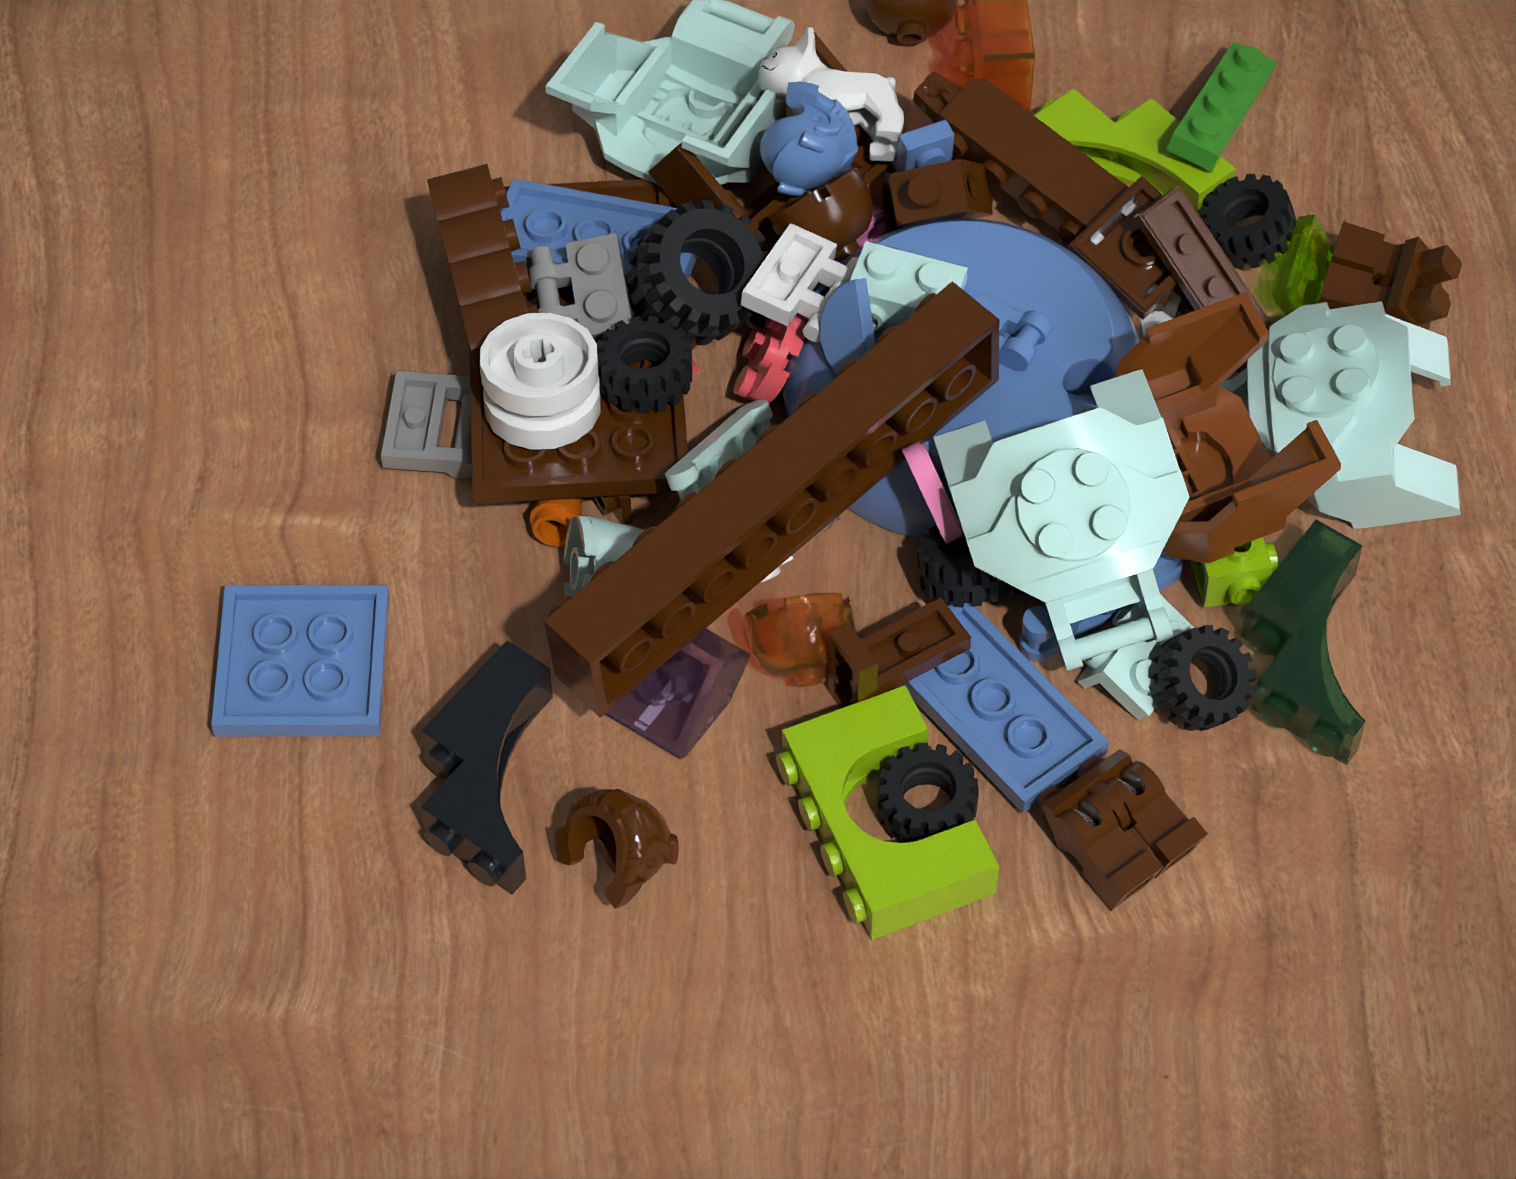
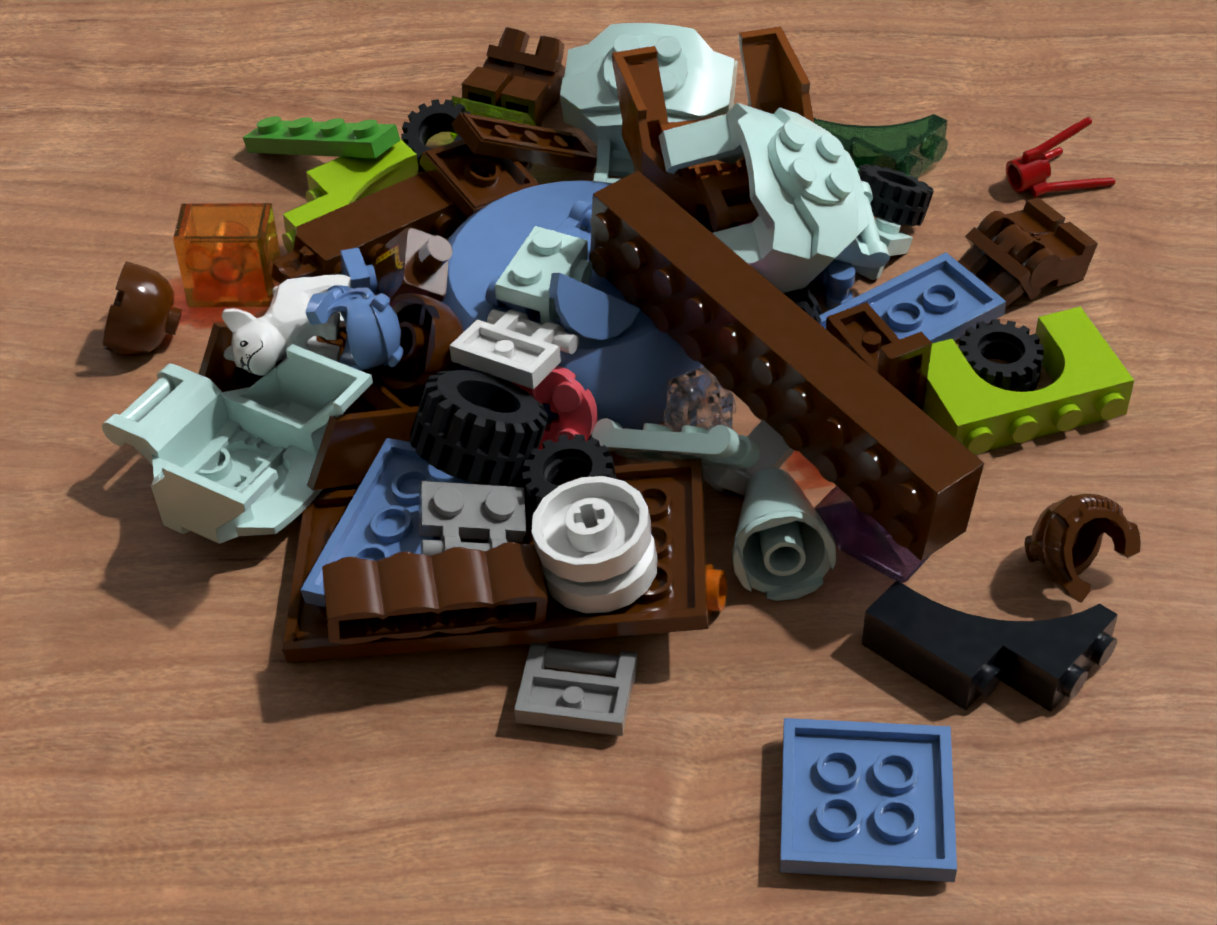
camera: 85 degrees left, 10 degrees down
(1301, 850) = (1033, 167): none -> red plant

